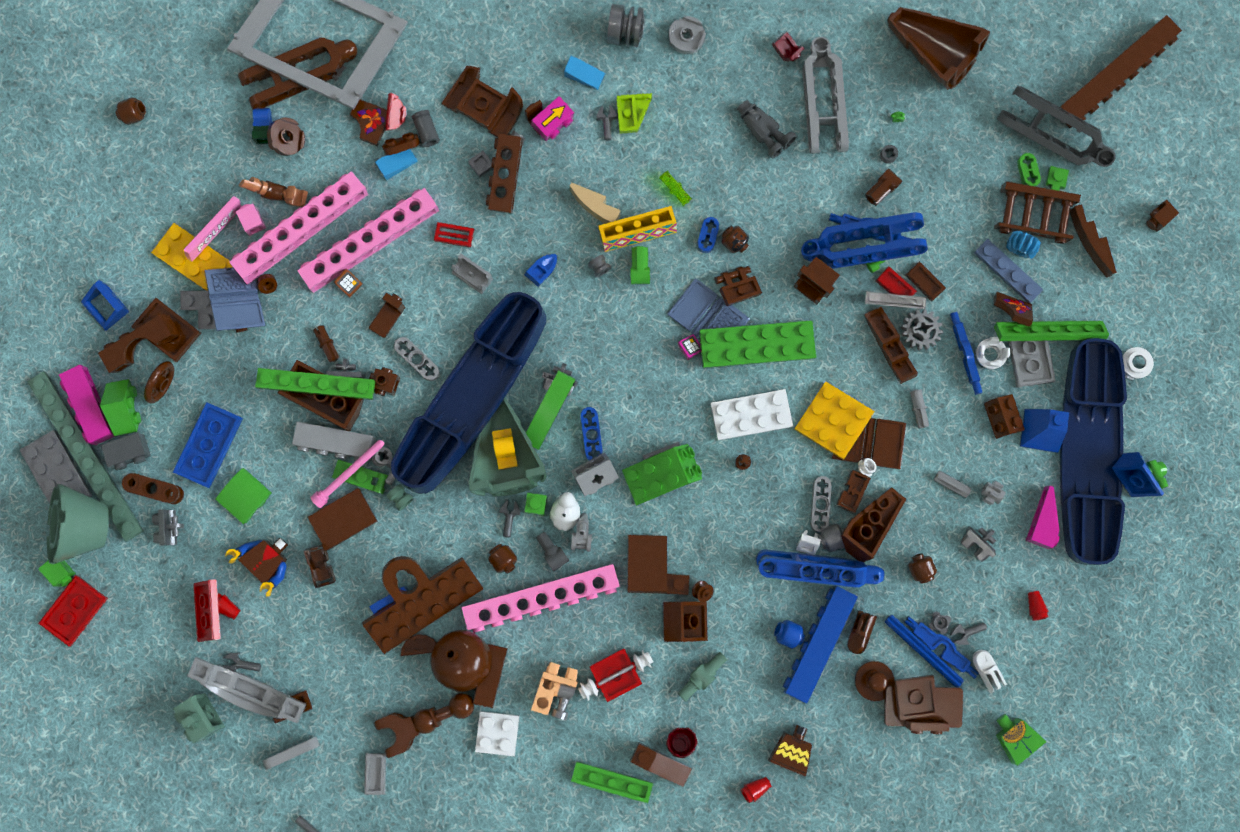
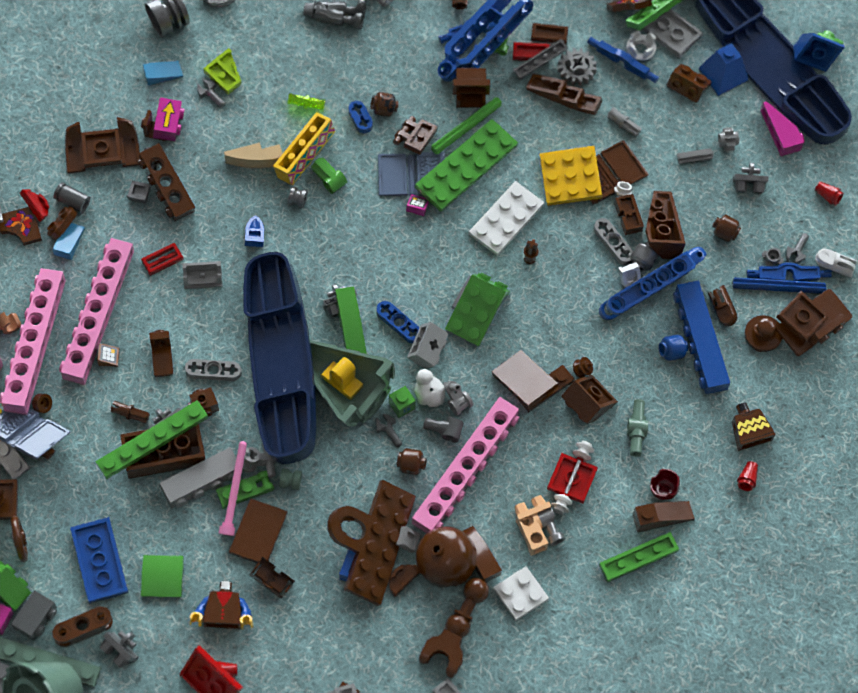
camera: 40 degrees left, 15 degrees down
(447, 619) = (408, 539): none -> light grey tile
(786, 310) = (466, 125): none -> bright green axle

